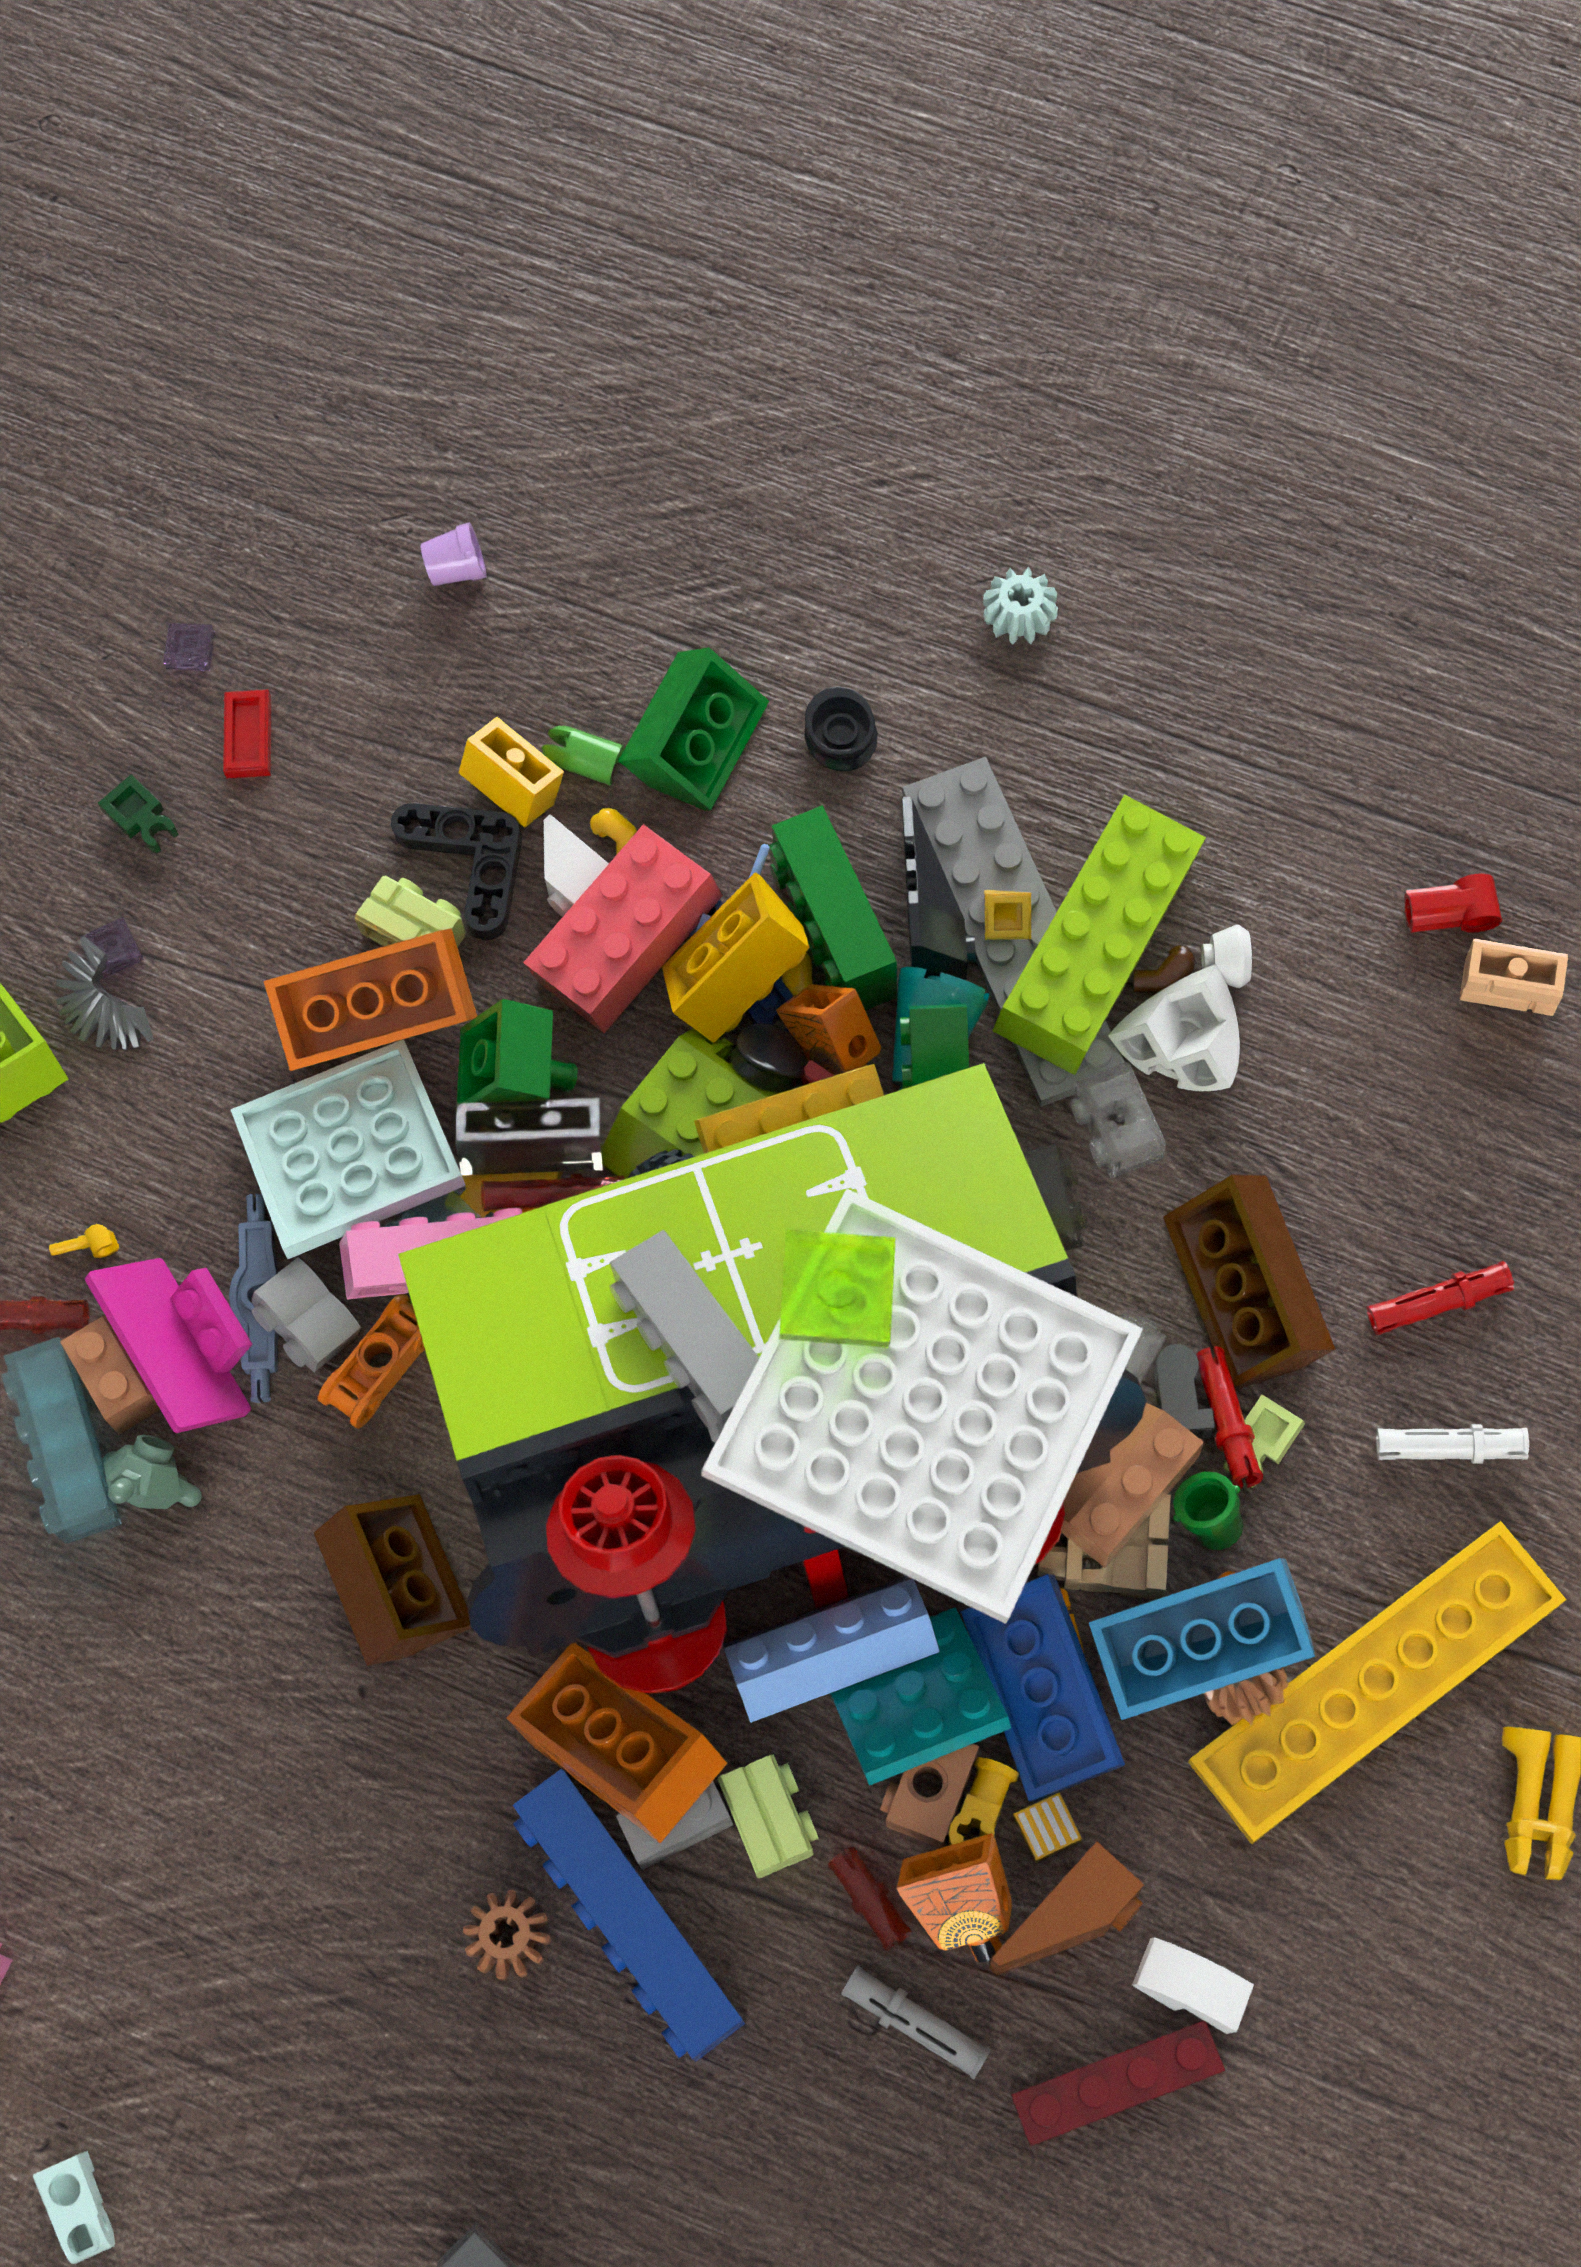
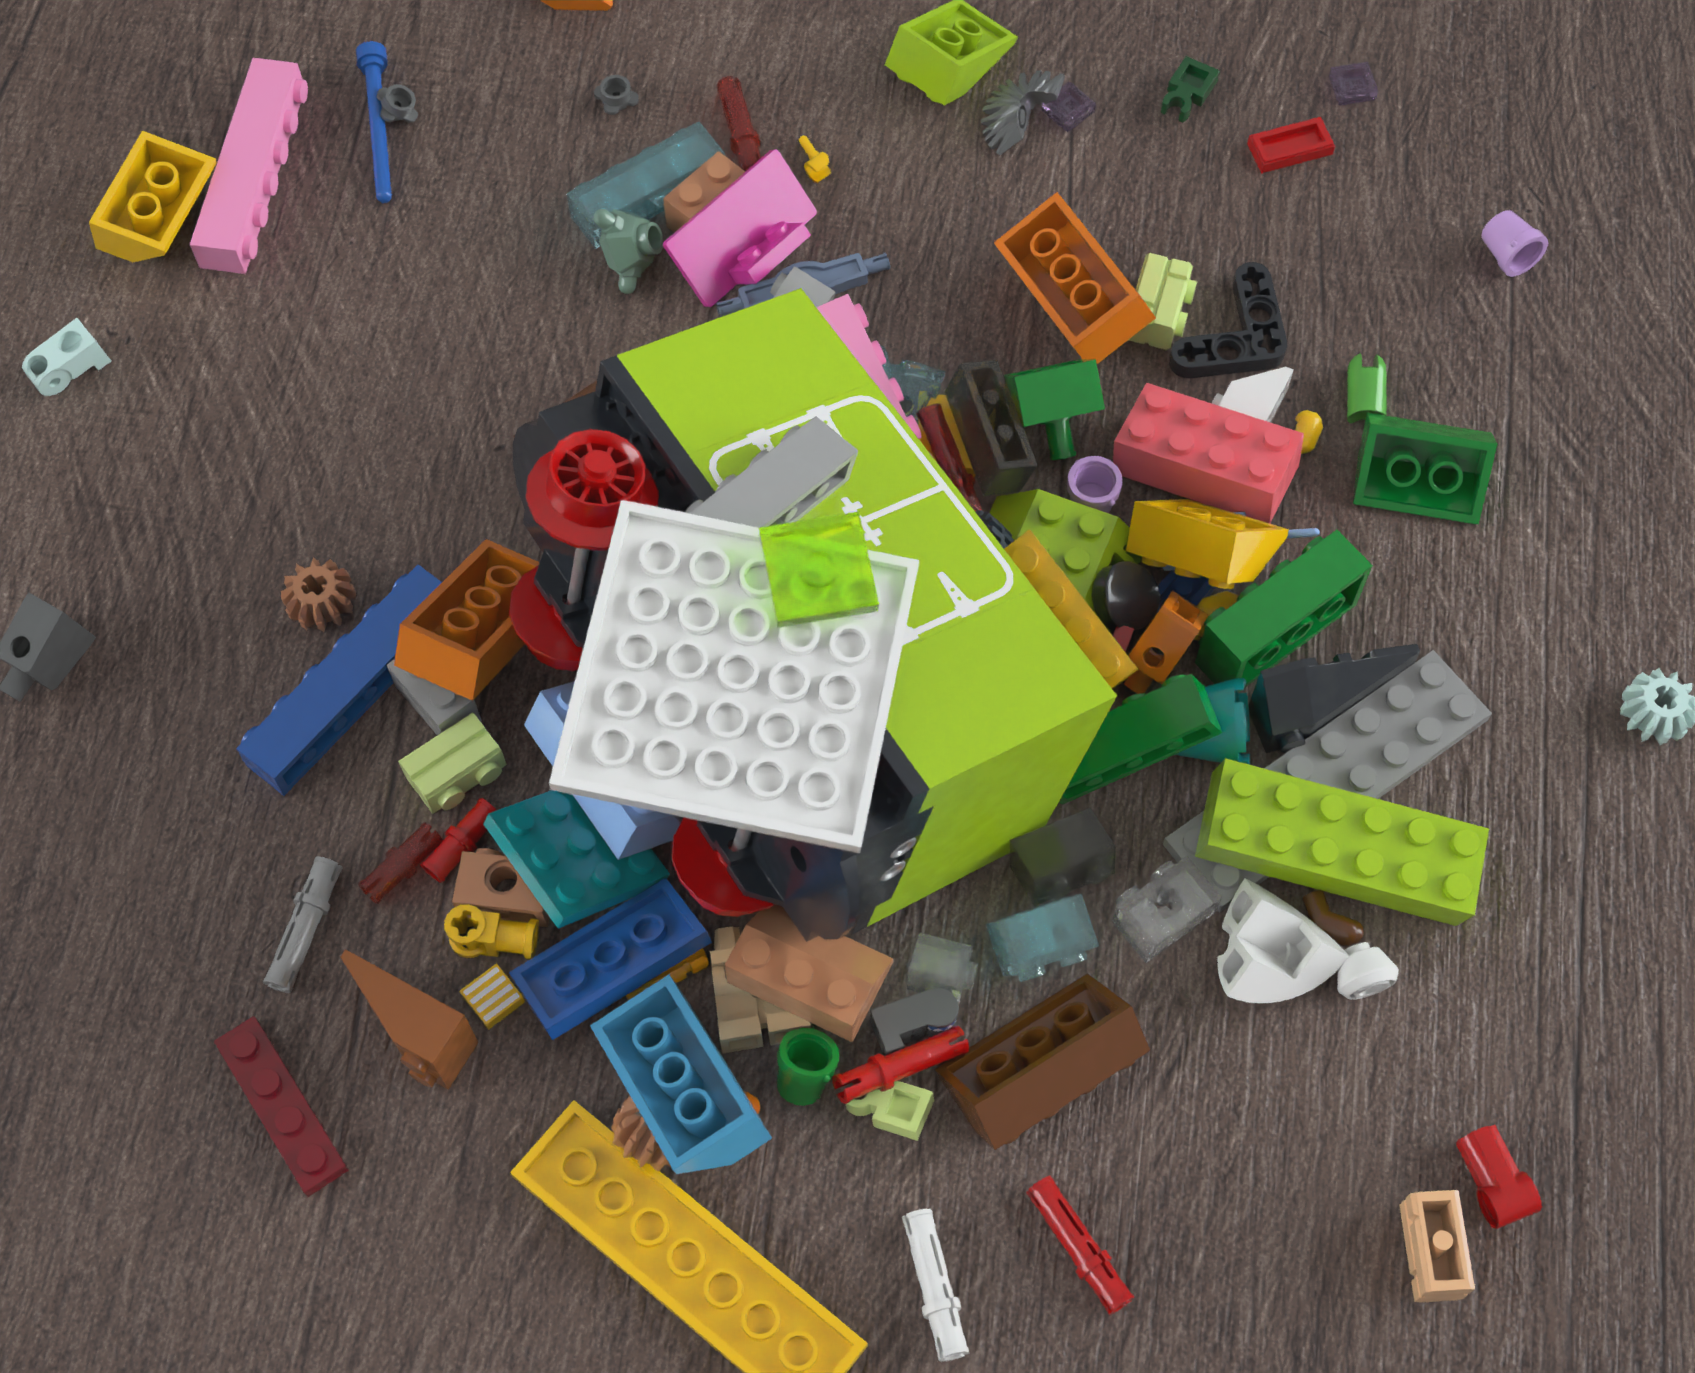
camera: 70 degrees right, 5 degrees down
(346, 1148) = (942, 303): light aqua plate -> none
(510, 772) = (1323, 333): yellow brick -> none
(627, 1052) = (1095, 482): none -> lavender piece
(840, 729) = (1471, 585): black piece -> none
(859, 1826) = (458, 839): none -> red pin
(959, 1895) = (410, 924): orange torso -> none
(1007, 915) = (1333, 759): yellow slope -> none
(1124, 1244) = (1042, 936): none -> clear light blue brick
(1194, 1984) = (372, 1148): white slope -> none

